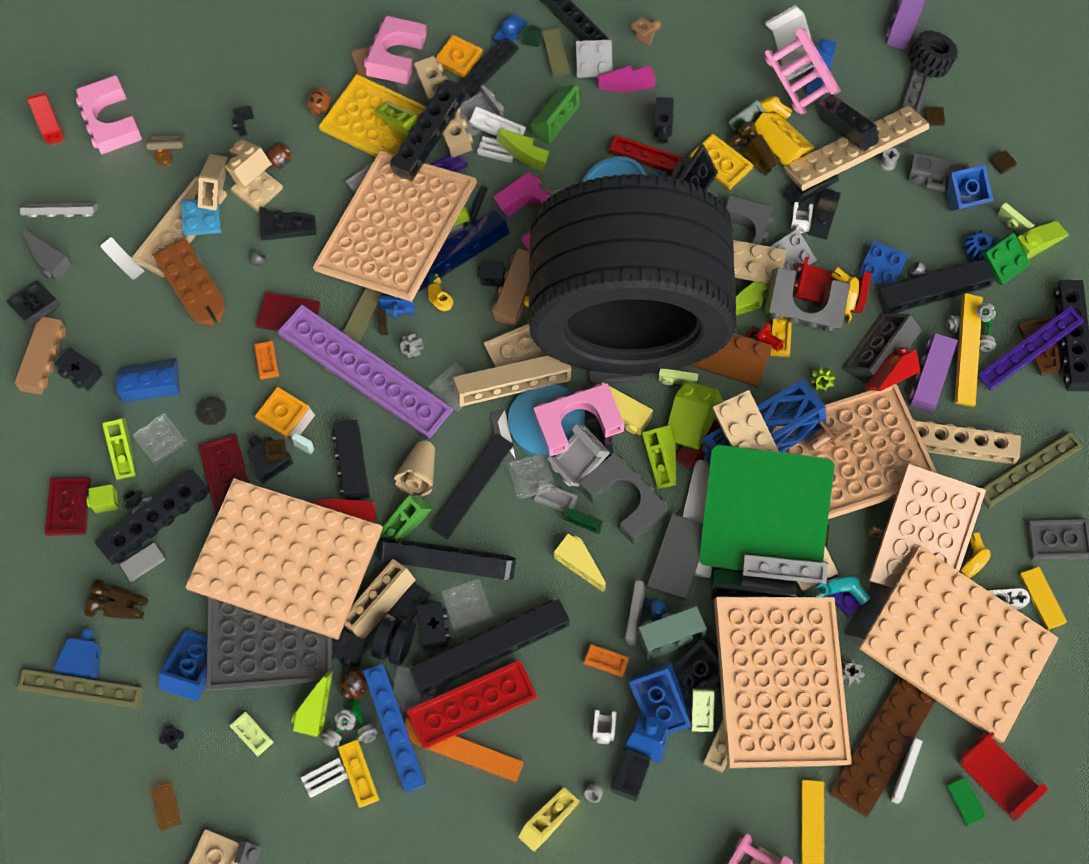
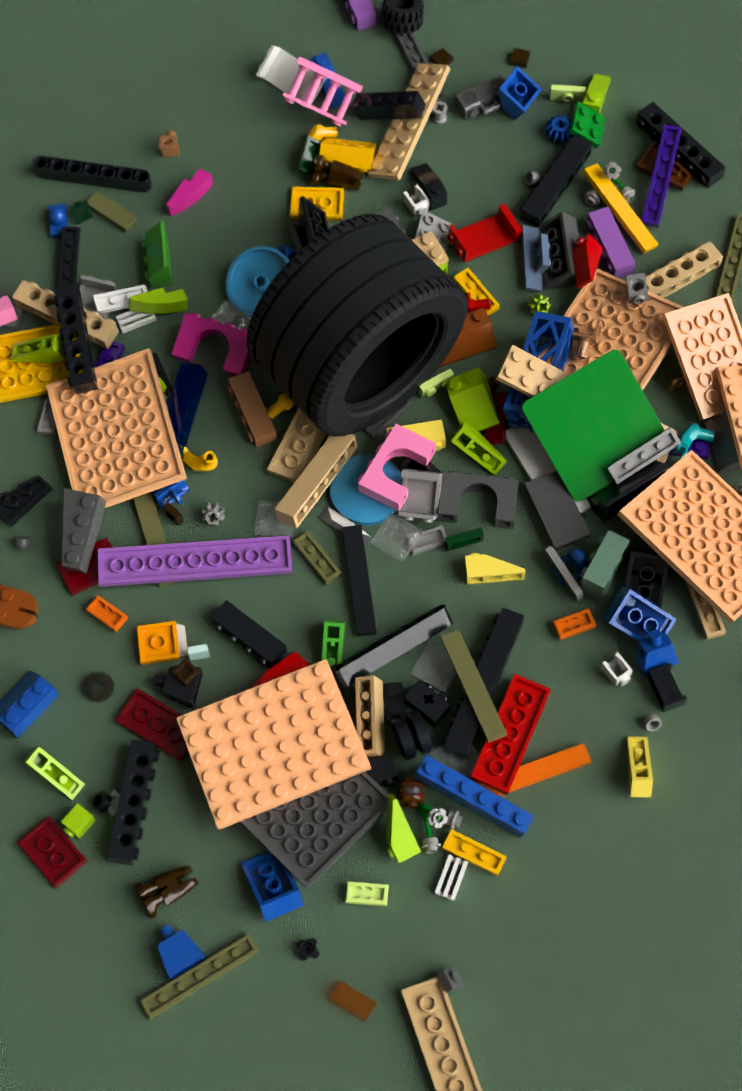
camera: 40 degrees left, 0 degrees up
(142, 562) = (156, 842): light grey tile -> none
(160, 439) = (78, 740): clear plate -> none
(300, 279) = (80, 528): none -> dark grey wedge
(417, 470) = (308, 600): tan cone -> none
(458, 443) = (317, 557): none -> olive tile
(459, 56) = (37, 267): light orange plate -> none
(474, 642) = (473, 686): none -> olive tile
(491, 273) = (223, 413): black brick -> none
(593, 58) = (149, 193): light grey plate -> none
(644, 154) = (259, 237): red plate -> none
(663, 118) = (247, 201): black torso -> none
(702, 710) = (673, 601): yellowish green plate -> none
(781, 302) = (465, 272): arch -> none
(795, 194) = (396, 187): black plate -> none
(853, 291) = (502, 227): yellow arm -> none
(856, 336) = (535, 257): none -> sand blue bracket
(883, 263) = (505, 190): blue hinge -> none
(912, 419) = (637, 281): none -> light grey brick

